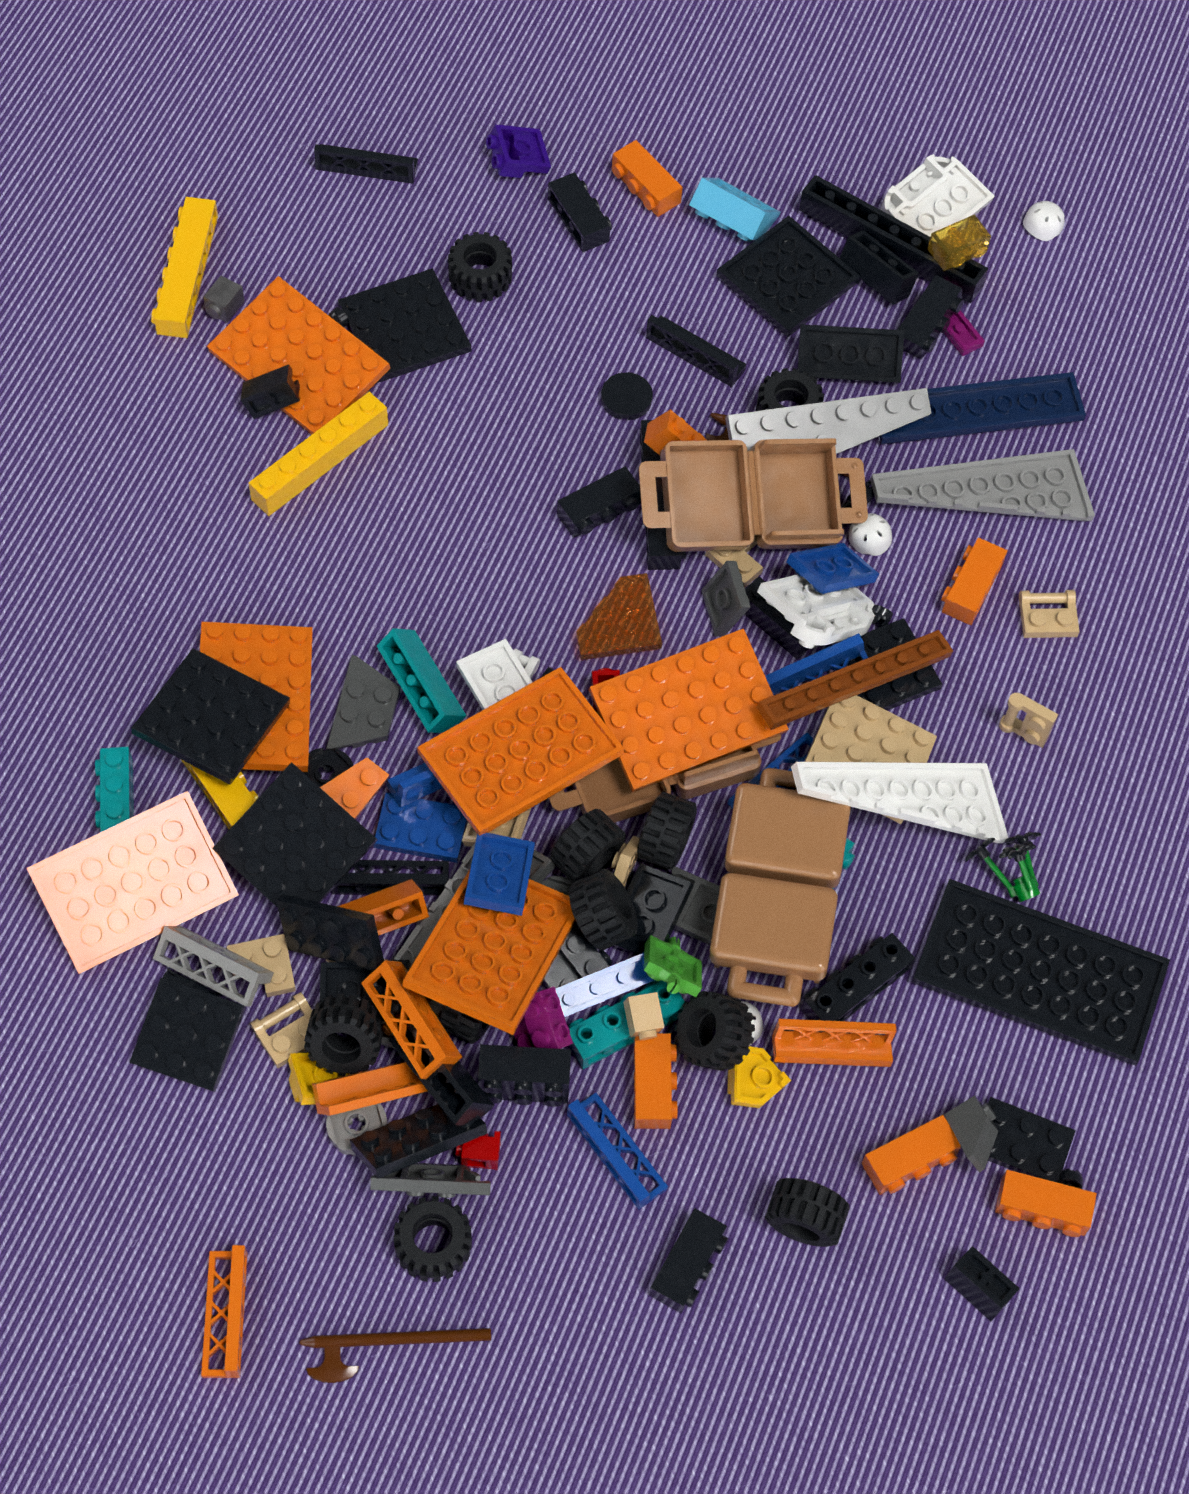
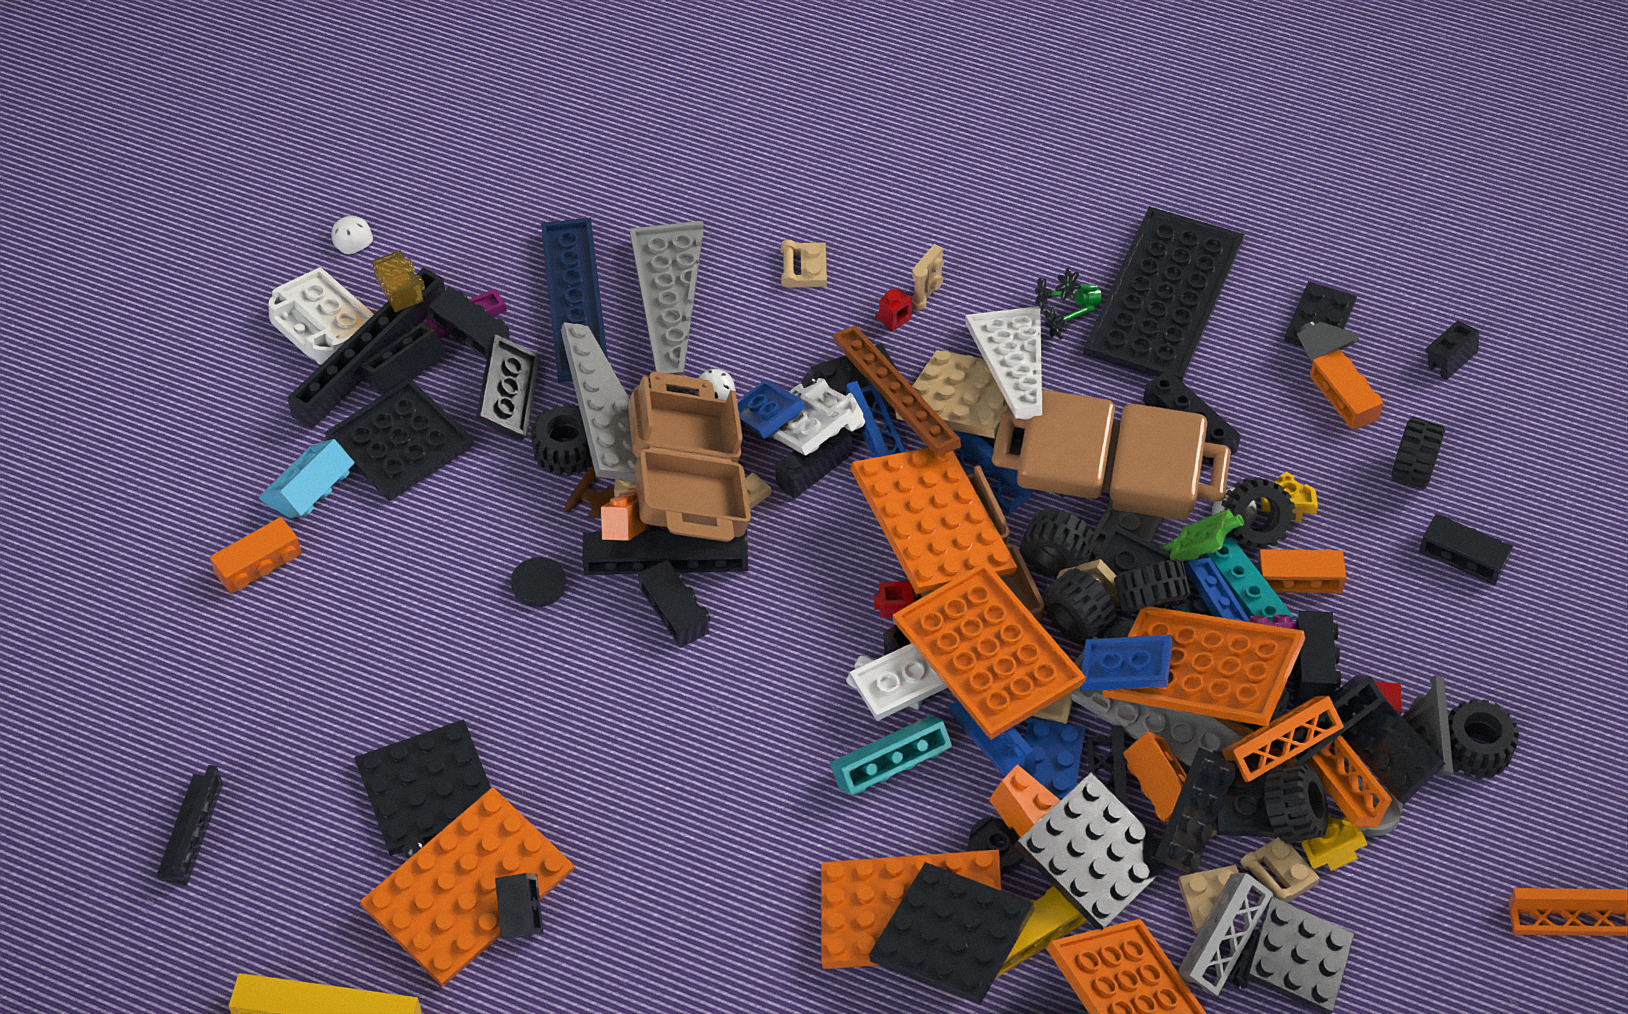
camera: 85 degrees left, 10 degrees down
(223, 299) = (378, 966): flat silver brick -> none
(318, 453) = (603, 859): yellow brick -> none
(335, 1371) = (1607, 823): reddish brown piece -> none
(364, 707) = (915, 815): dark grey wing -> none
(480, 250) = (367, 724): black tyre -> none
(517, 151) = (201, 673): dark purple plate -> none
(579, 212) = (294, 617): black brick -> none
(610, 1154) = (1376, 605): blue fence -> none
(621, 621) = (813, 587): clear orange plate -> none
(644, 1016) = (1253, 559): tan brick -> none
(694, 350) = (486, 520): black fence -> none
(725, 598) = (797, 494): dark grey plate -> none
(834, 1044) = (1253, 436): orange fence -> none
(973, 580) = (772, 311): orange brick -> none
(991, 690) = (890, 304): none -> red brick
(1045, 1203) = (1377, 304): orange brick -> none
(1071, 1175) = (1353, 287): black hinge -> none

